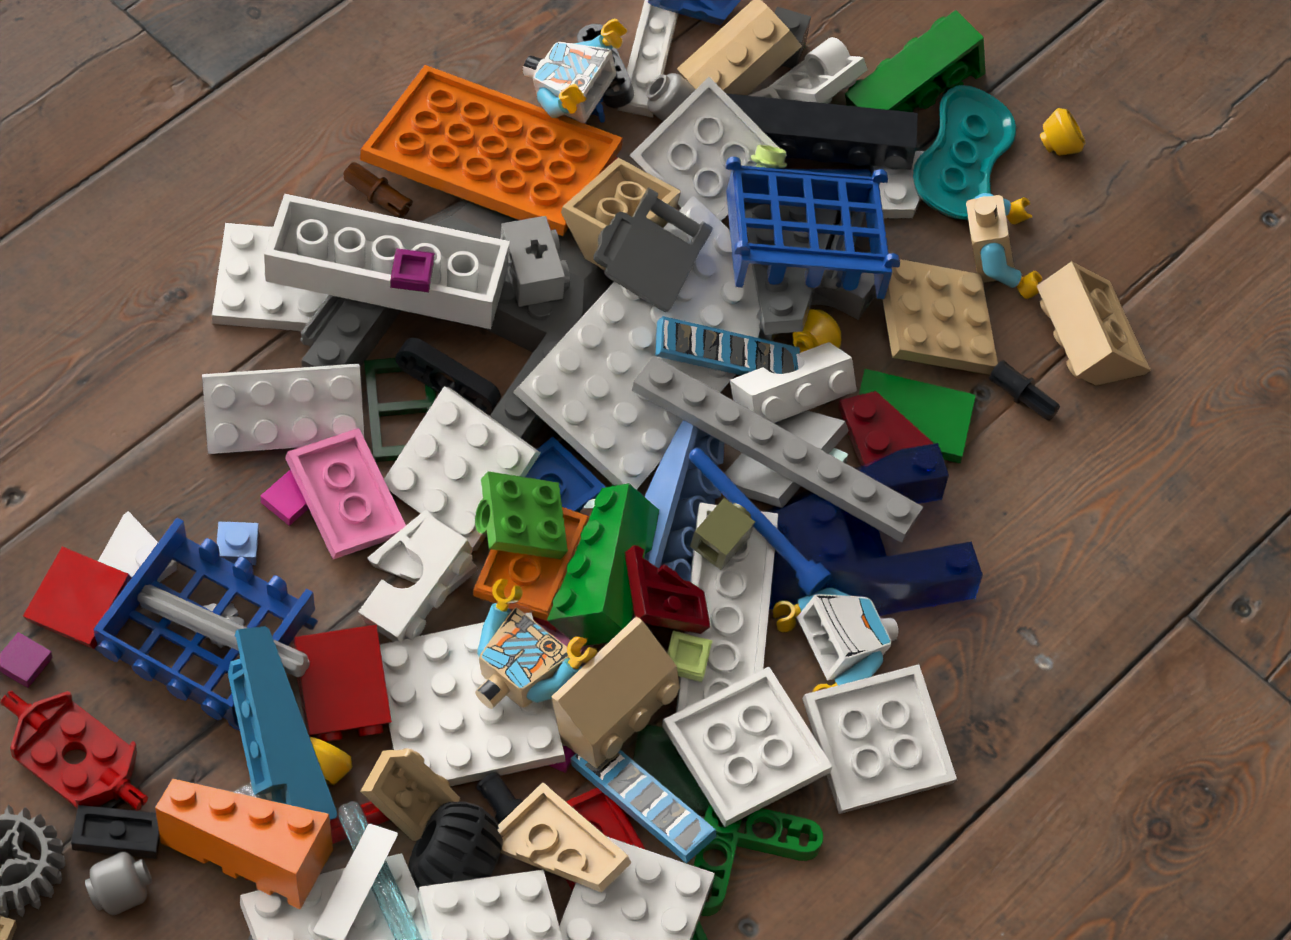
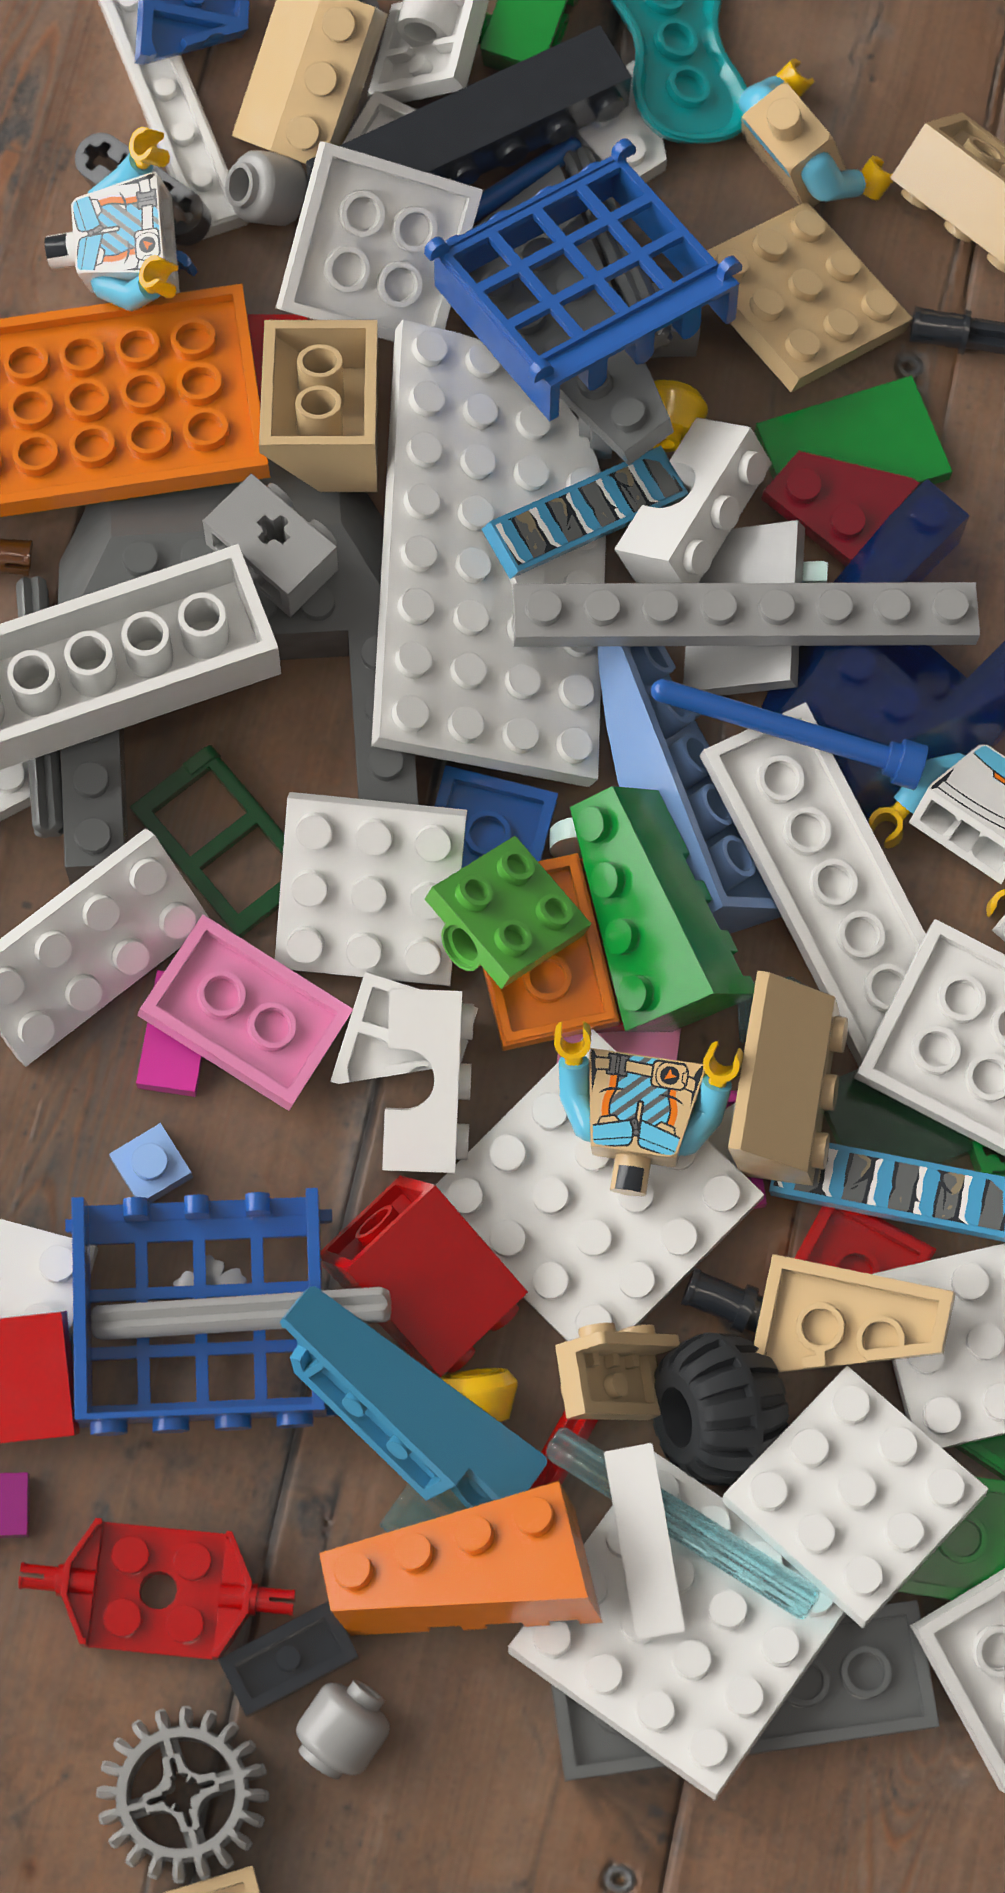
camera: 30 degrees left, 15 degrees up
(412, 270) = (147, 667): magenta tile -> none
(428, 364) = (258, 767): black beam -> none
(647, 255) = (412, 447): dark grey piece -> none
(664, 597) = (754, 911): dark red wing -> none
(689, 654) = (825, 963): yellowish green tile -> none
(723, 533) = (767, 777): olive brick -> none
(769, 157) = (467, 208): yellowish green plate -> none

